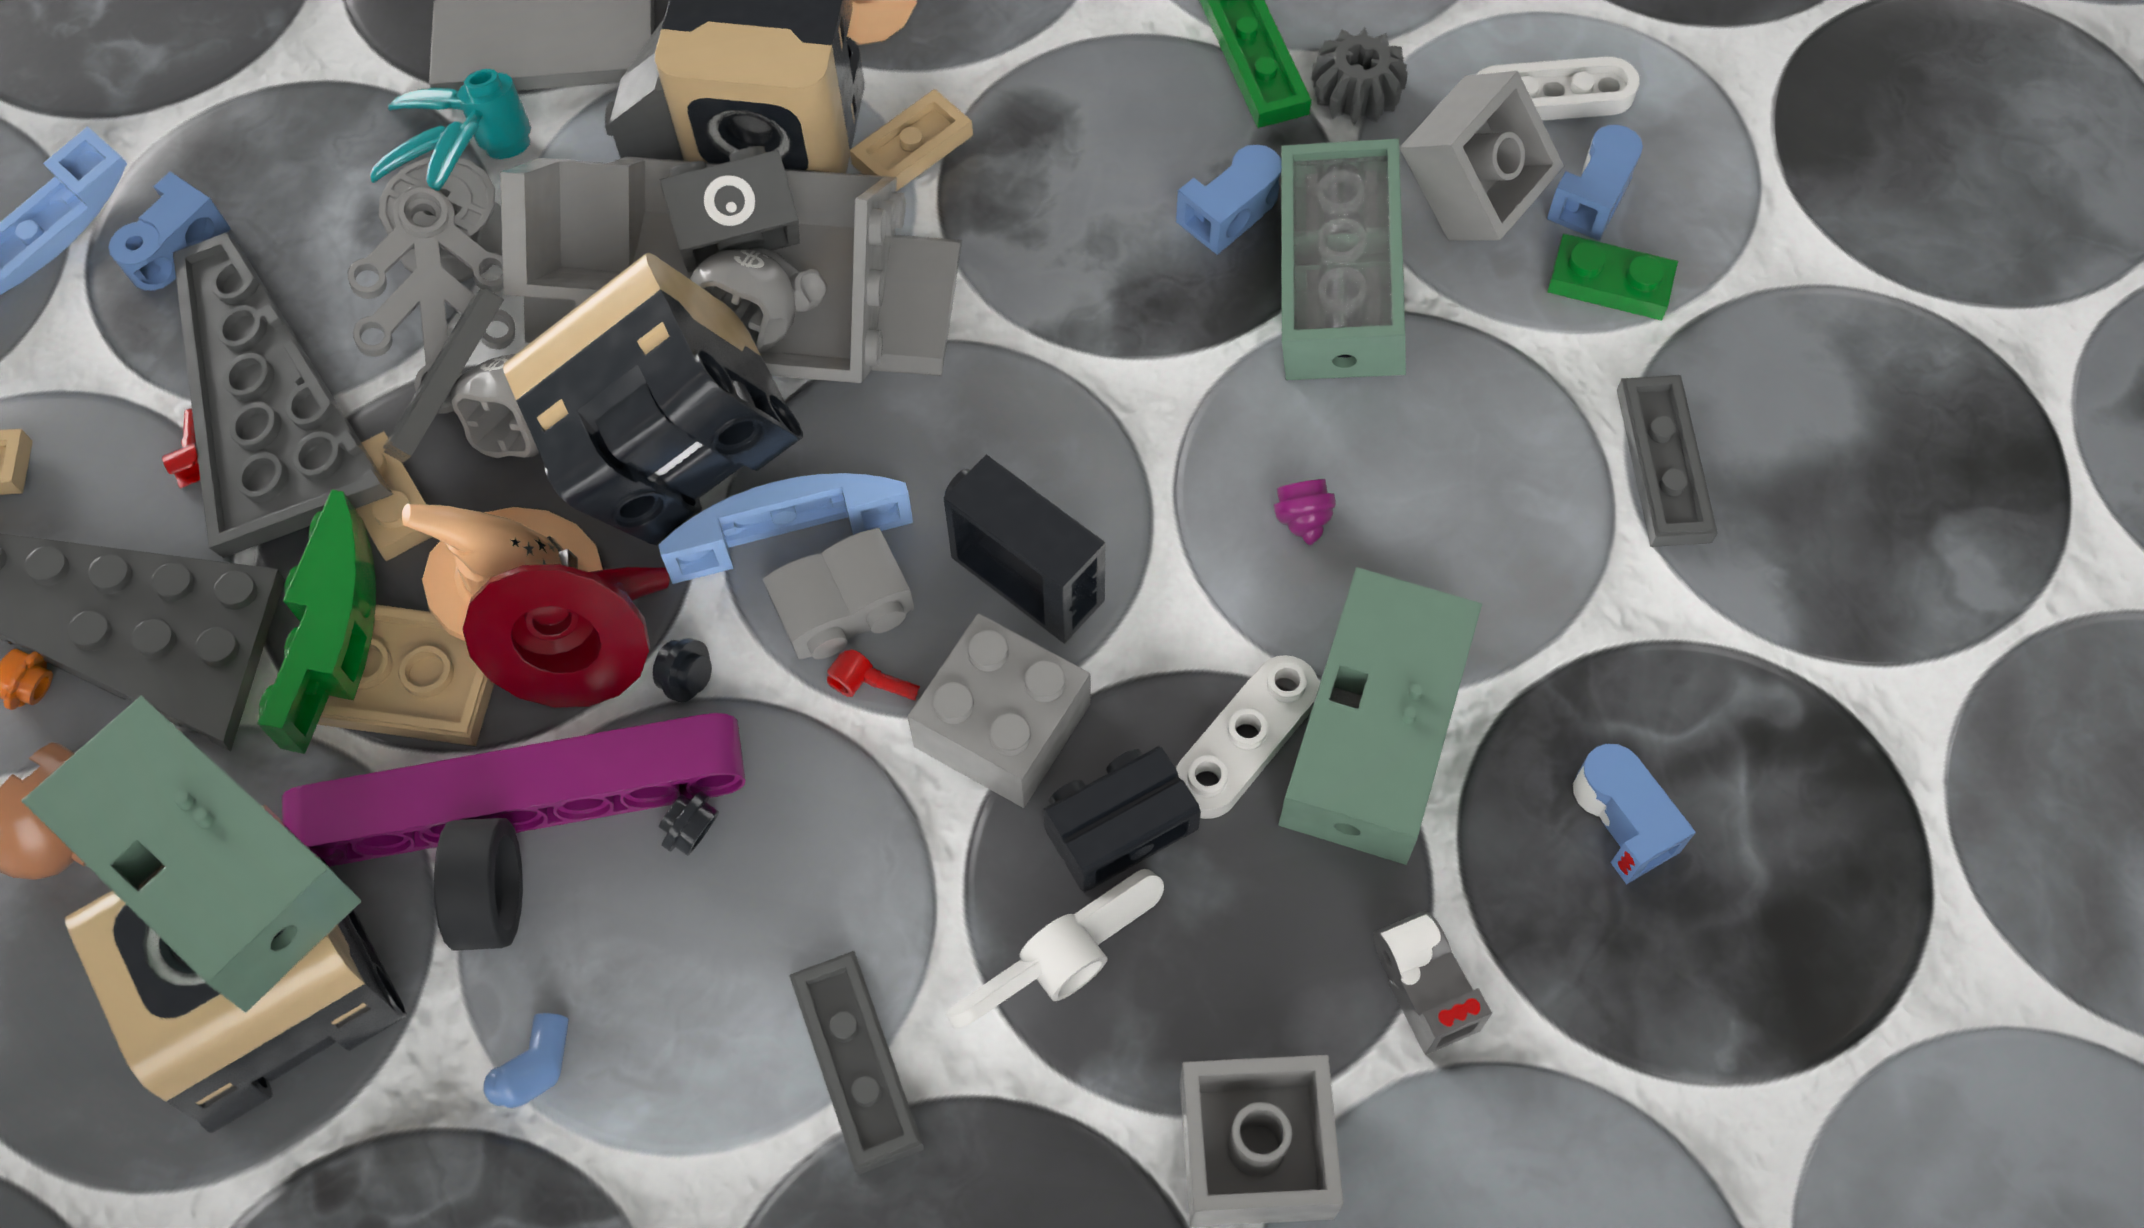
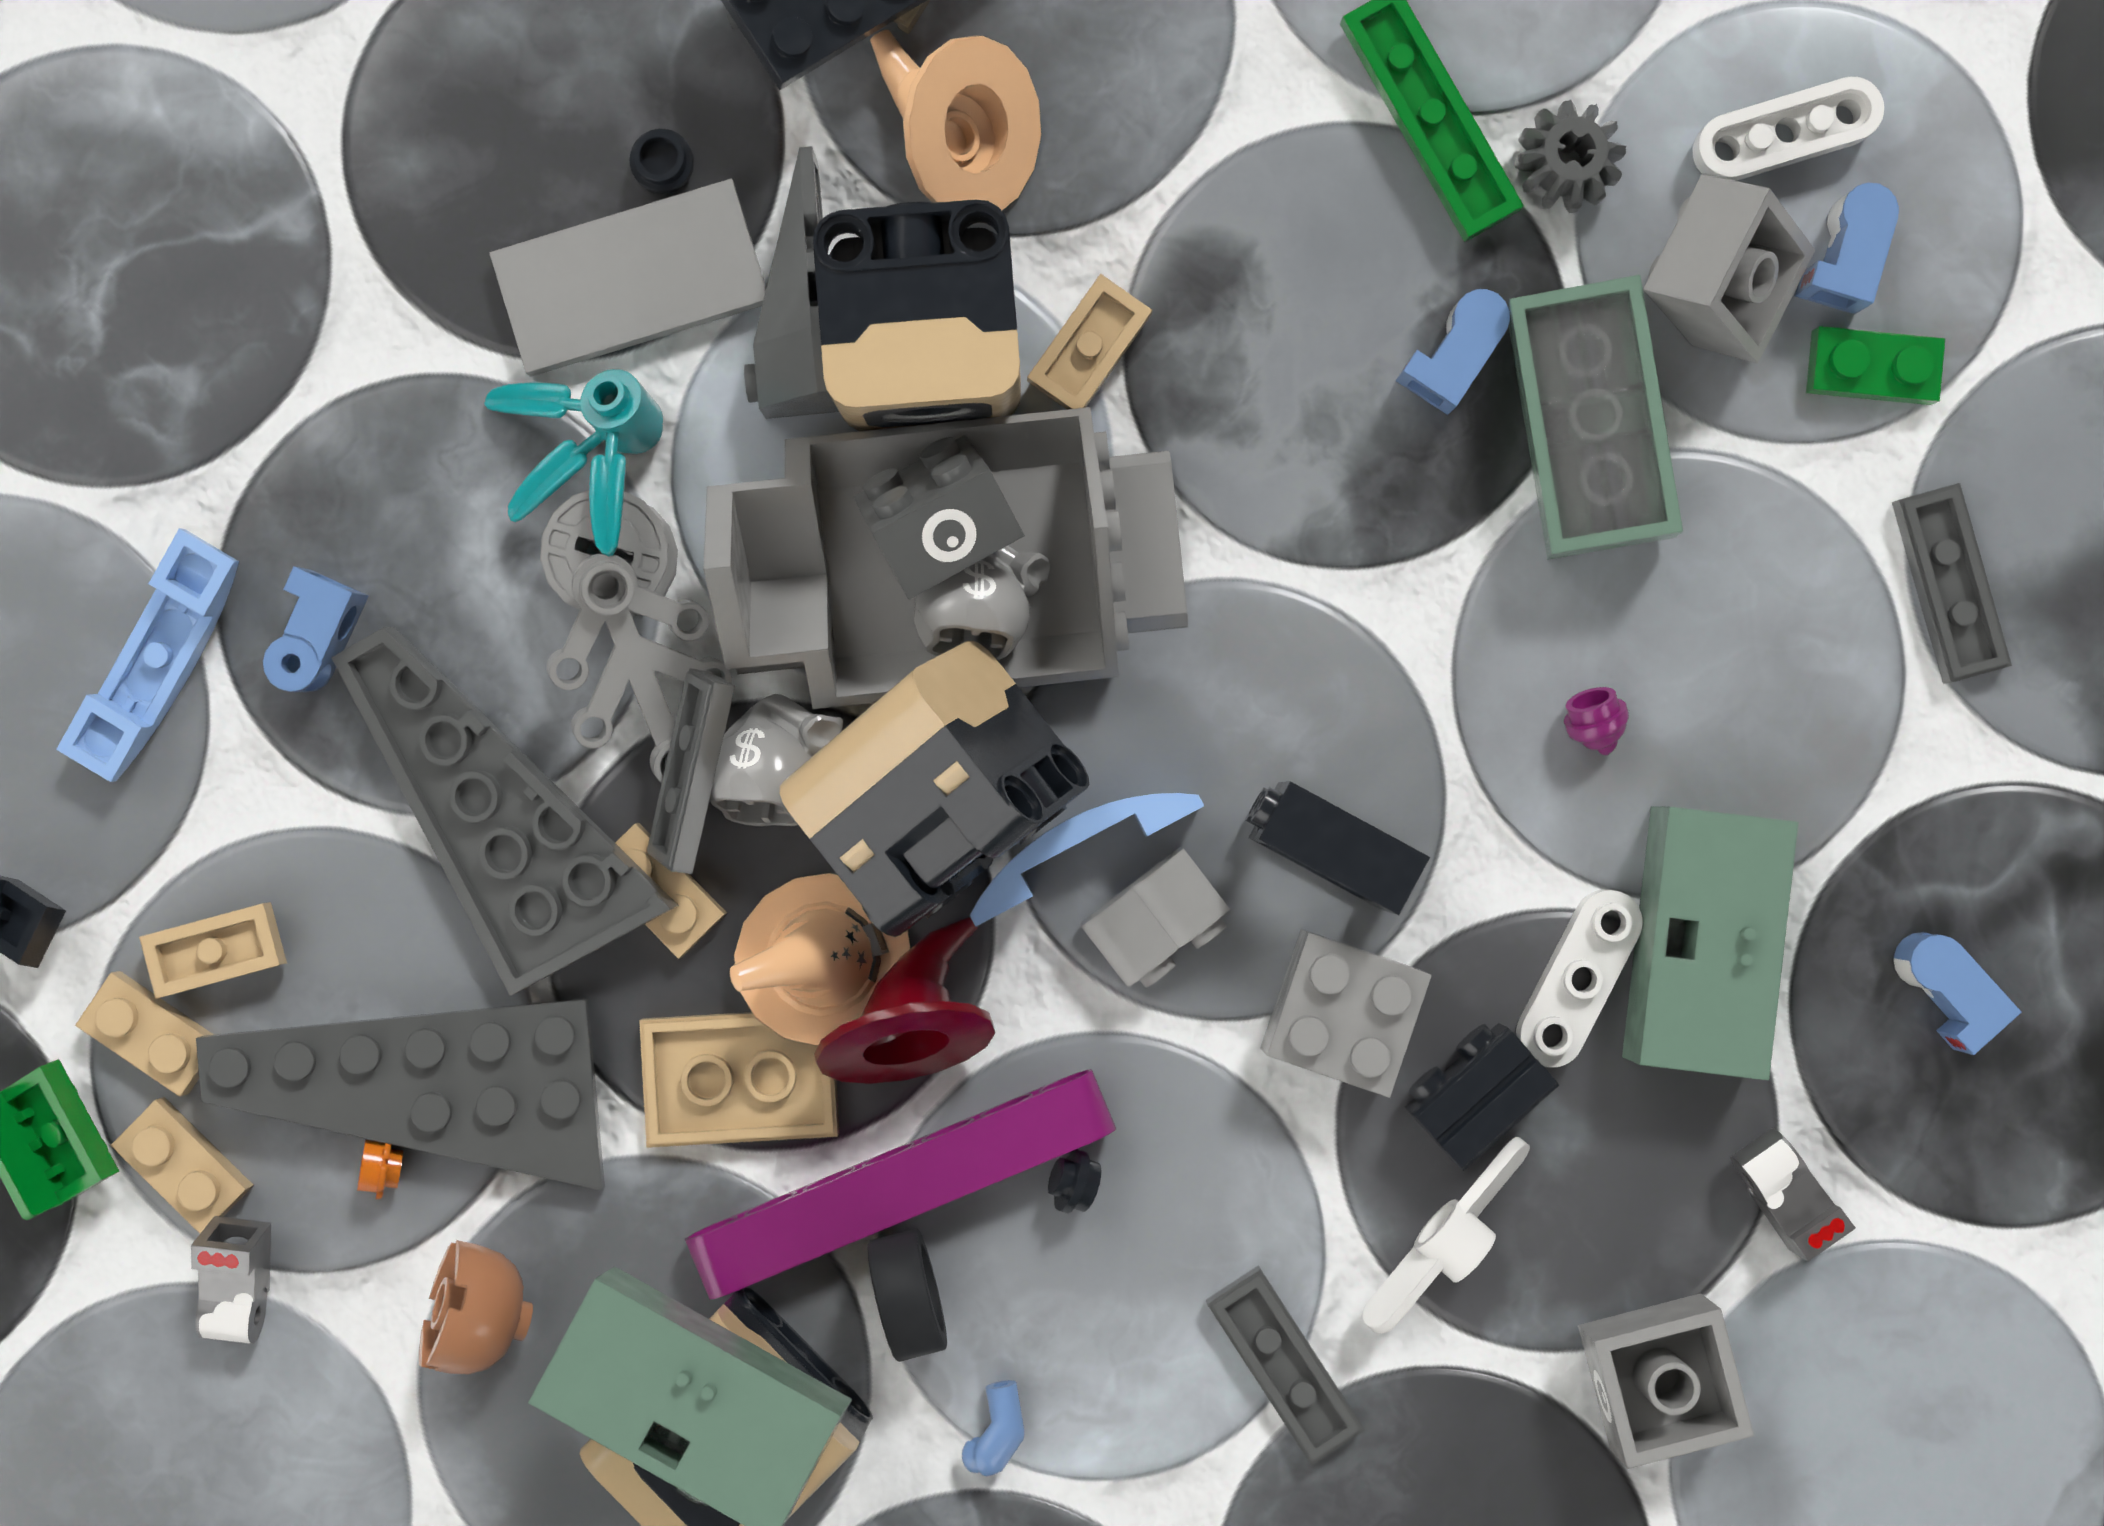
camera: 15 degrees left, 25 degrees up
(184, 461) = (440, 900): red hand -> none
(336, 607) = (665, 1034): green slope -> none
(682, 669) = (1023, 1027): black plate -> none
(853, 669) = (1185, 990): red hand -> none

